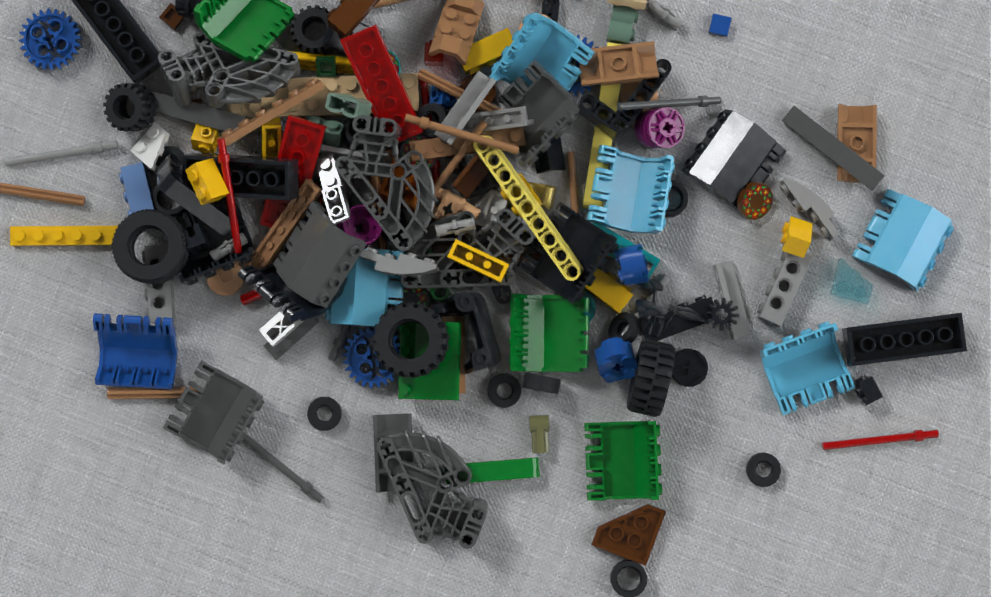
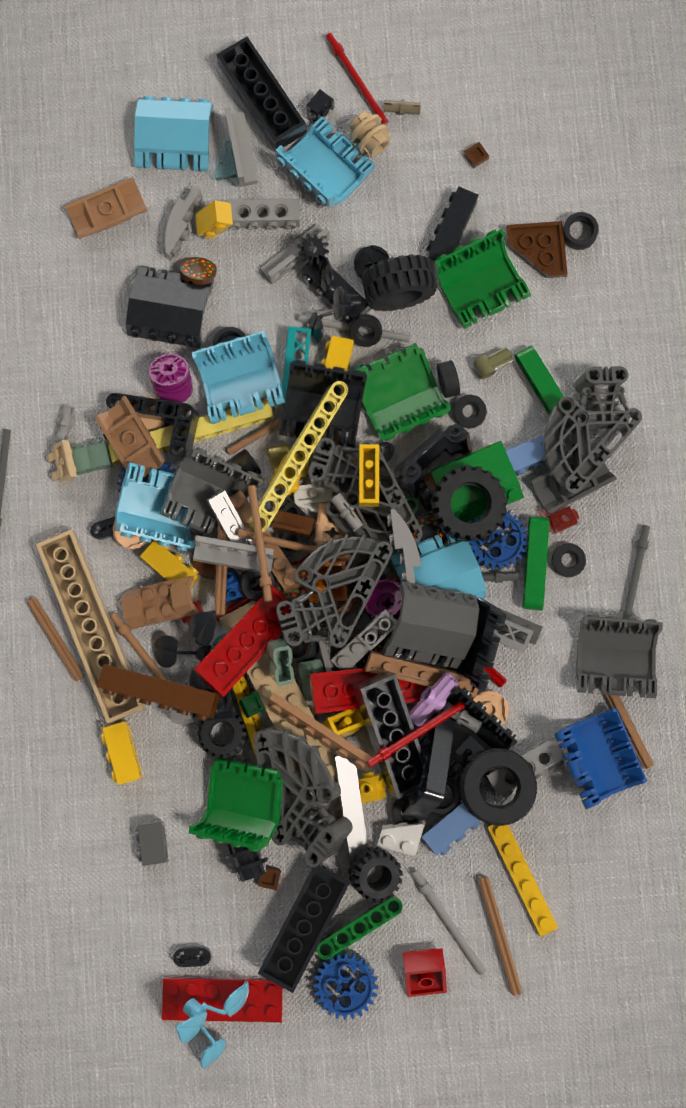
camera: 115 degrees left, 5 degrees down
(29, 112) = (425, 972): none -> red slope
(87, 67) = (353, 935): none -> green beam
(207, 181) = (413, 759): yellow brick -> none
(255, 229) = (433, 699): none -> lavender piece
(335, 382) = (536, 563): none -> green beam
(367, 420) = (557, 522): none -> clear red brick
(410, 50) = (200, 627): none -> black plant
(437, 420) = (527, 455): none -> medium blue brick
(615, 360) = (397, 322): blue brick -> none
(632, 265) = (306, 343): blue brick -> none
(689, 460) = (454, 223): none -> black brick
(701, 101) = (129, 356): dark grey bar -> none
(720, 25) = (52, 373): blue tile -> none
(750, 517) = (476, 155): none -> reddish brown tile
(763, 481) = (432, 151): black tyre -> none
(813, 423) = (369, 133): none -> tan piece
(831, 469) = (402, 107): none -> dark tan pin
(833, 148) = (120, 224): dark grey tile -> none
(857, 295) = (241, 148): none -> light grey fence

